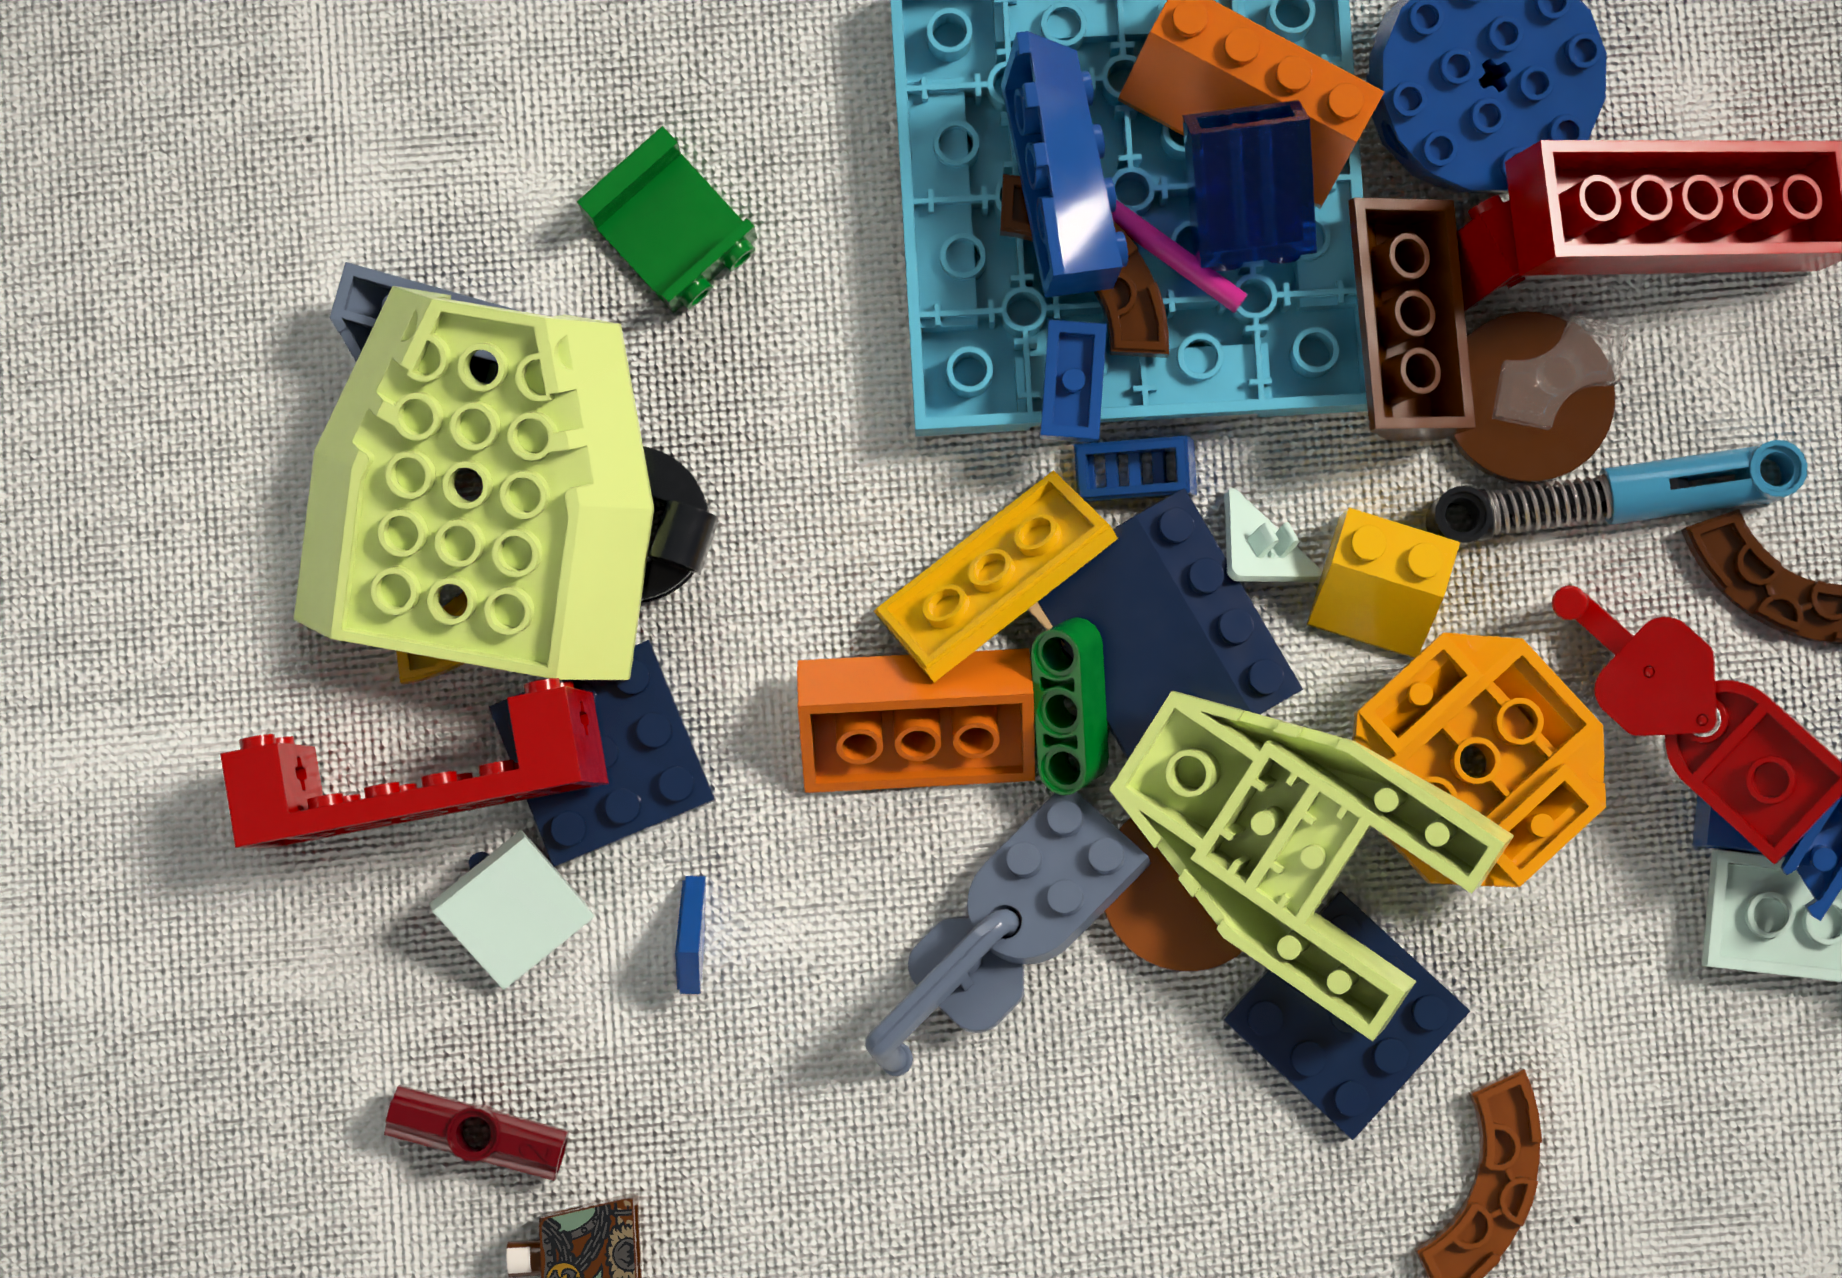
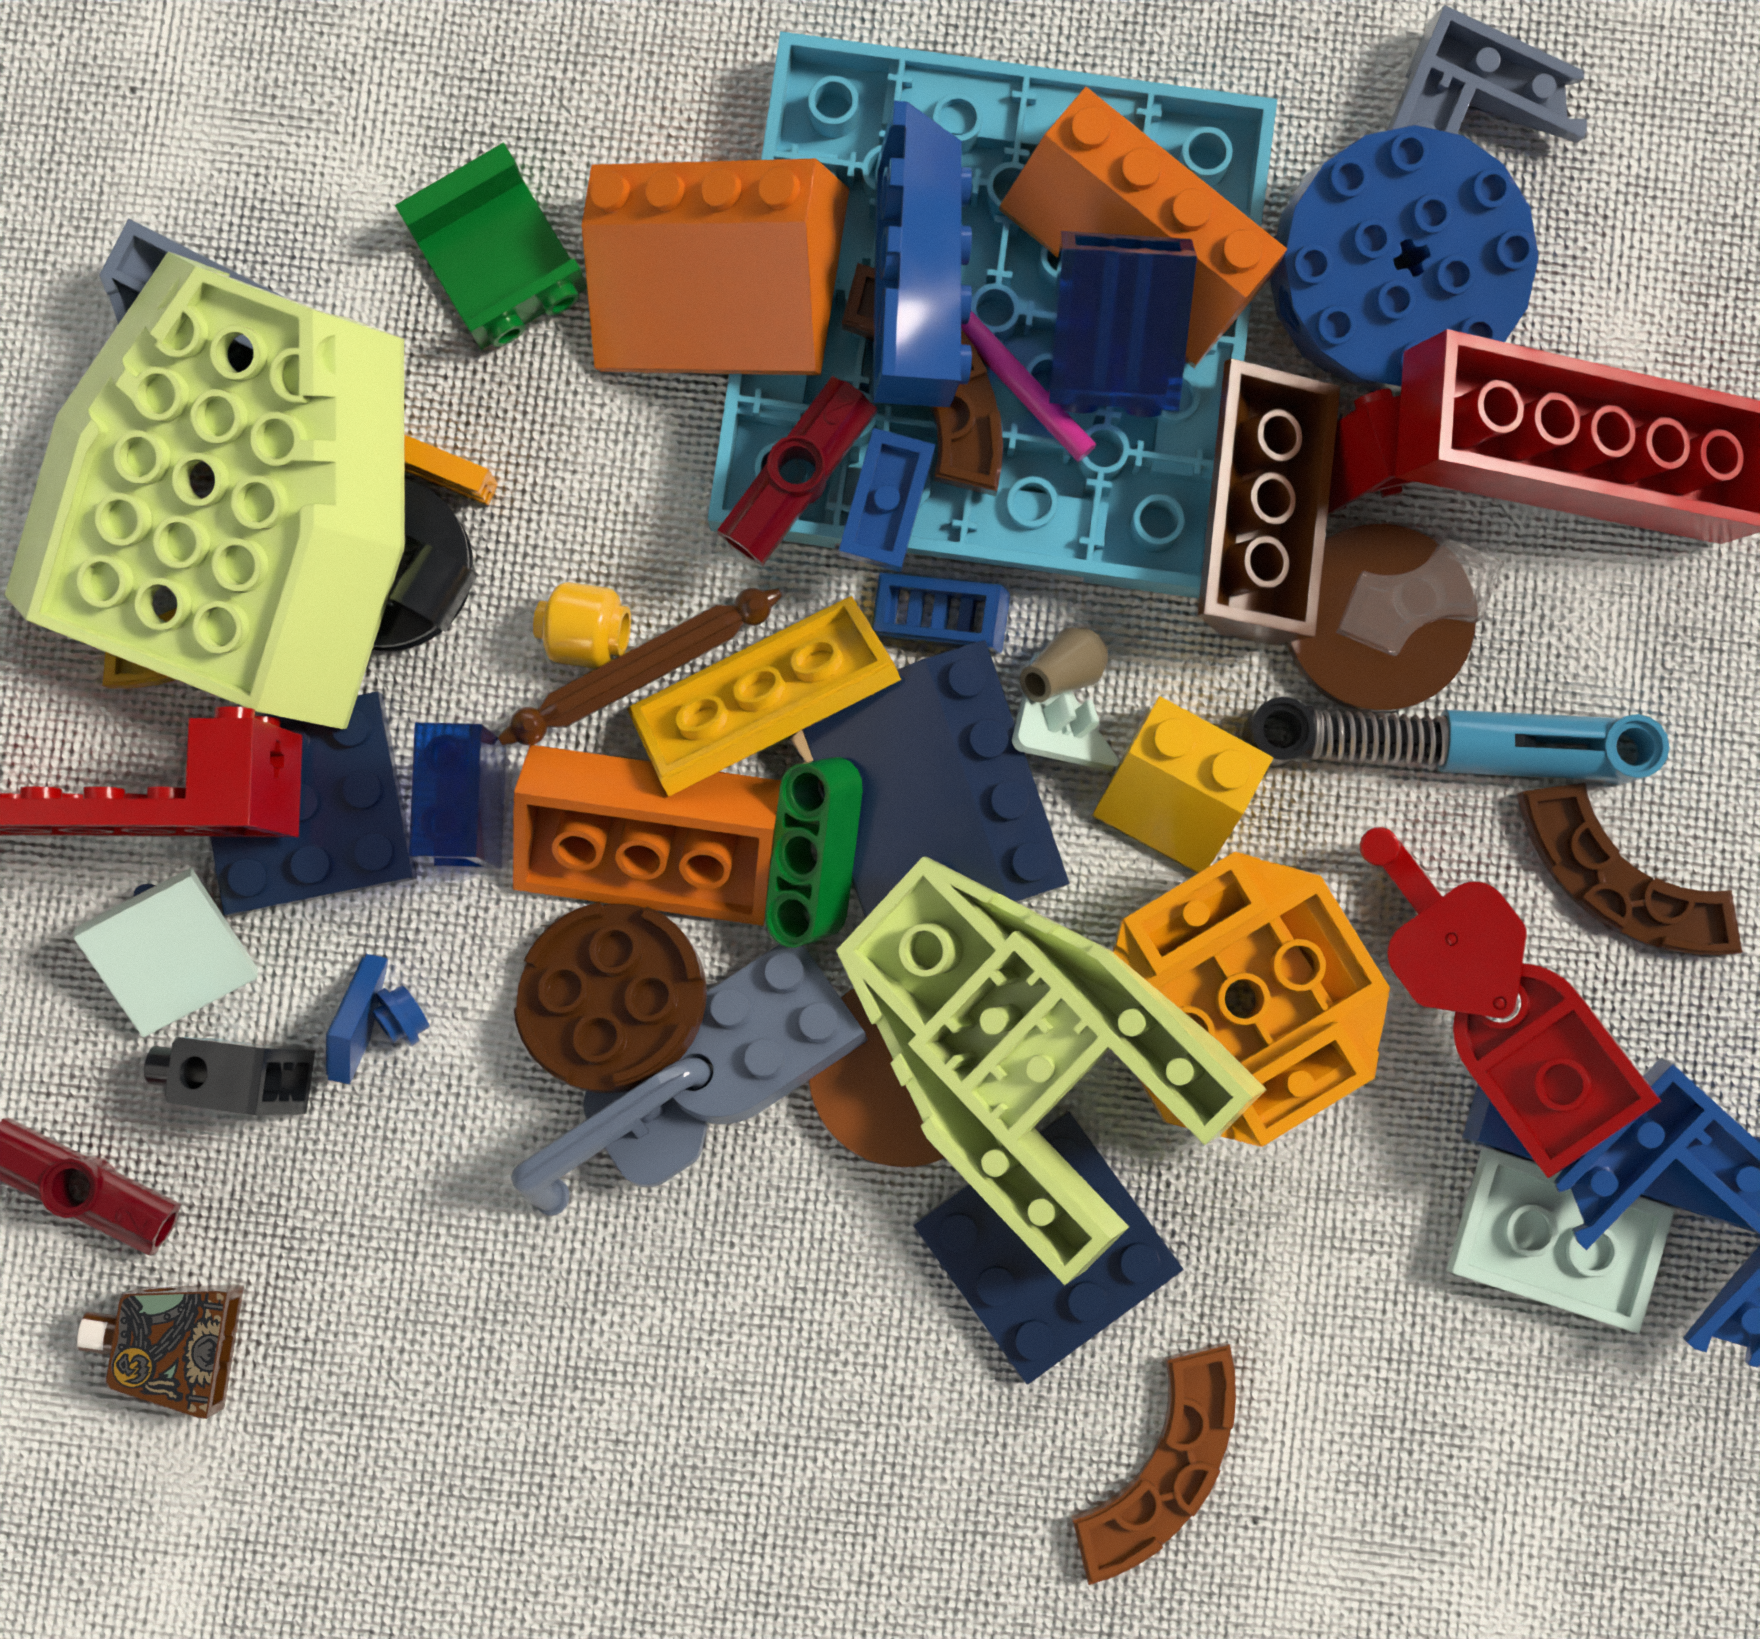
camera: 10 degrees right, 0 degrees up
(607, 1006) = (232, 1075): none -> black torso
(675, 430) = (448, 471): none -> light orange tile
(730, 924) = (400, 1015): none -> blue plate
(746, 719) = (457, 795): none -> clear blue panel
(820, 544) = (582, 625): none -> yellow head
(873, 203) = (712, 265): none -> orange slope
(880, 571) = (639, 666): none -> reddish brown wheel
(914, 870) = (610, 997): none -> reddish brown tile
(1003, 338) = (819, 437): none -> dark red piece
(1259, 494) = (1067, 664): none -> dark tan cone

